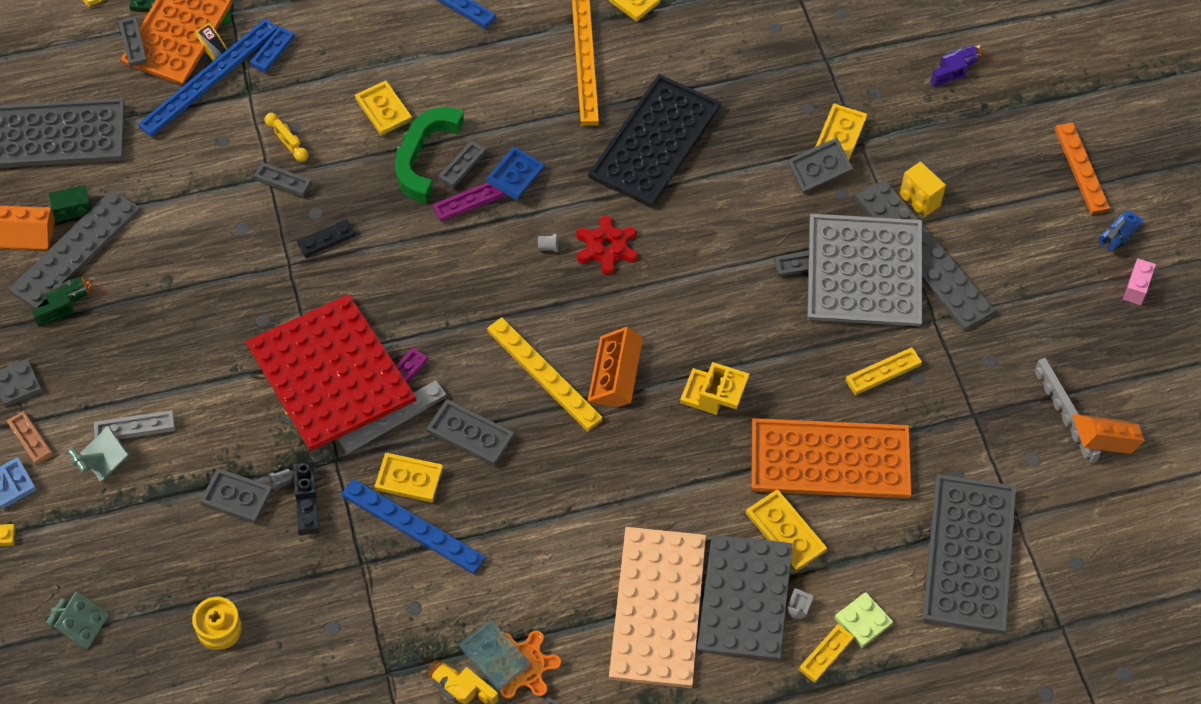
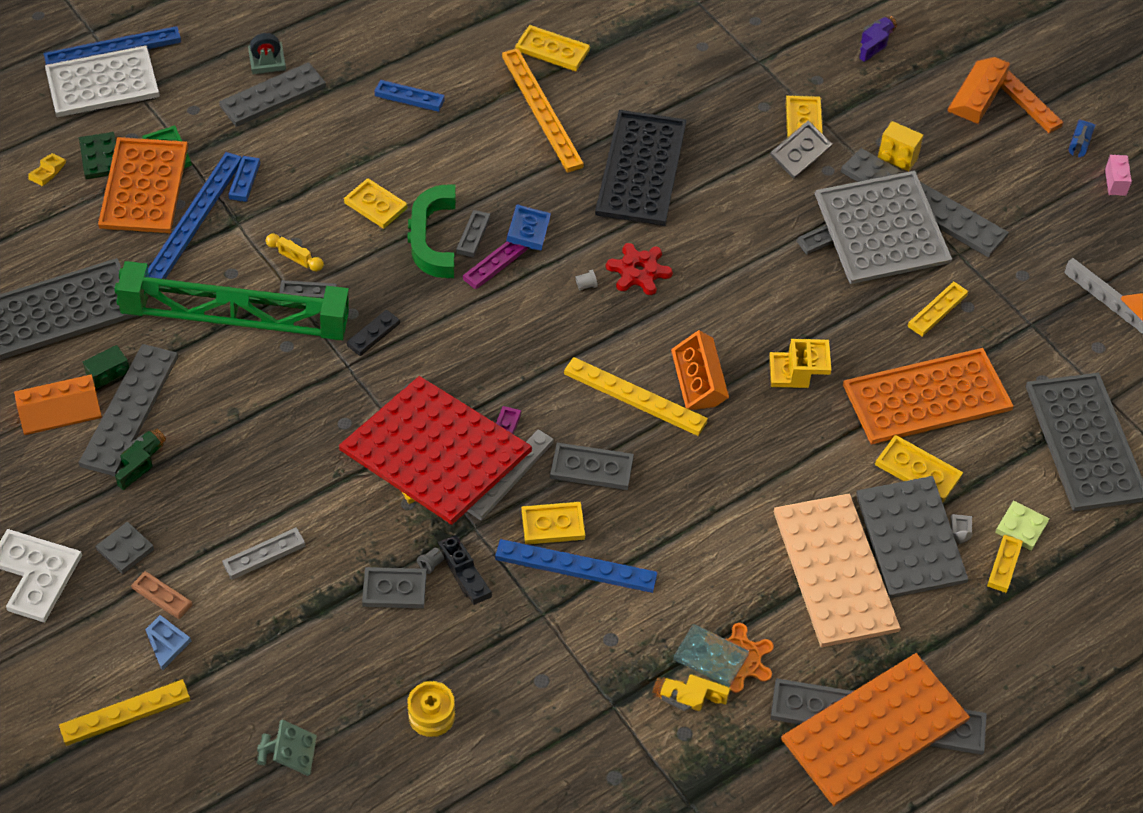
camera: 20 degrees left, 5 degrees down
(101, 455) = (245, 587): plate -> none
(123, 133) = (137, 285): none -> green piece
(133, 41) = (106, 203): dark grey plate -> none
(211, 41) = (181, 182): slope -> none
(1036, 149) = (979, 89): none -> orange slope

